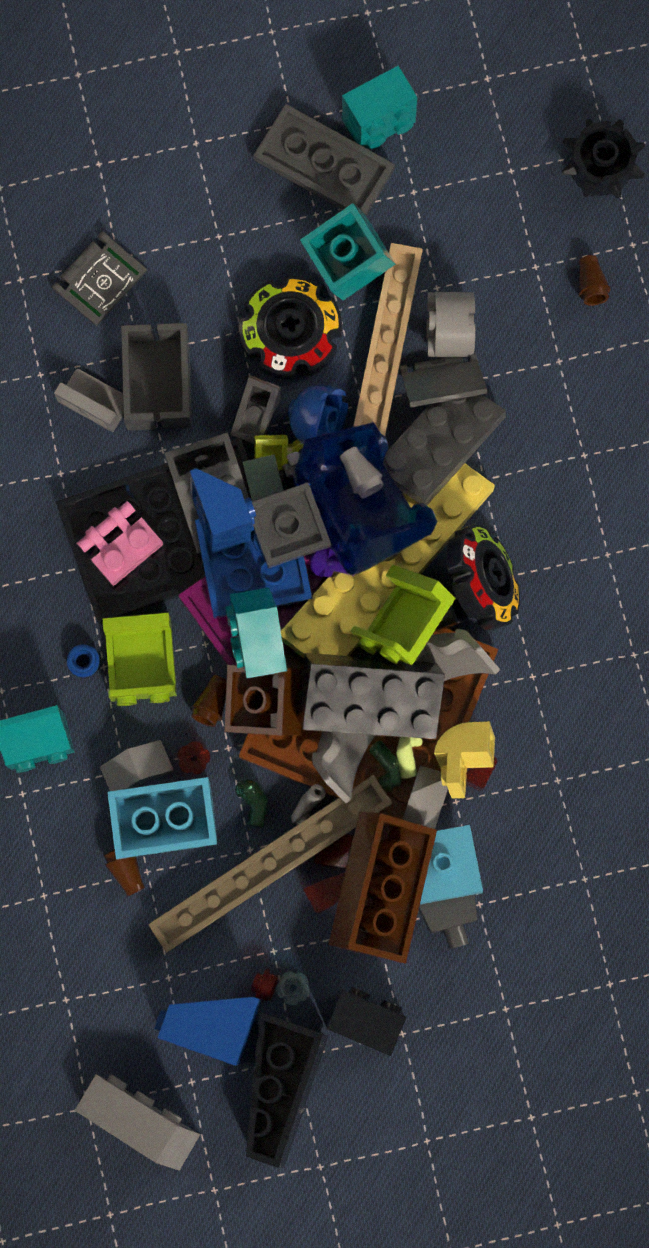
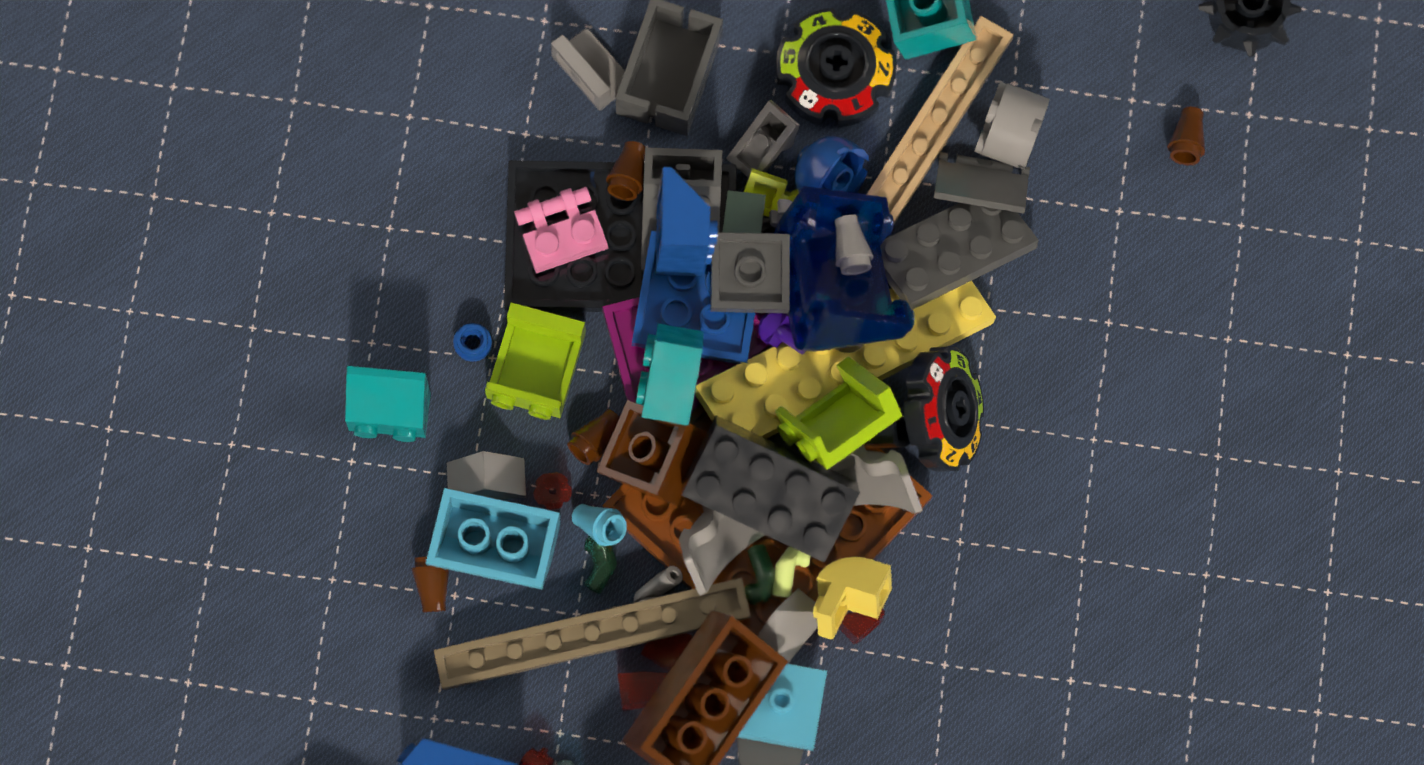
camera: 15 degrees right, 5 degrees down
(156, 476) = (628, 172): none -> reddish brown cone
(245, 772) = (602, 524): none -> medium azure cone

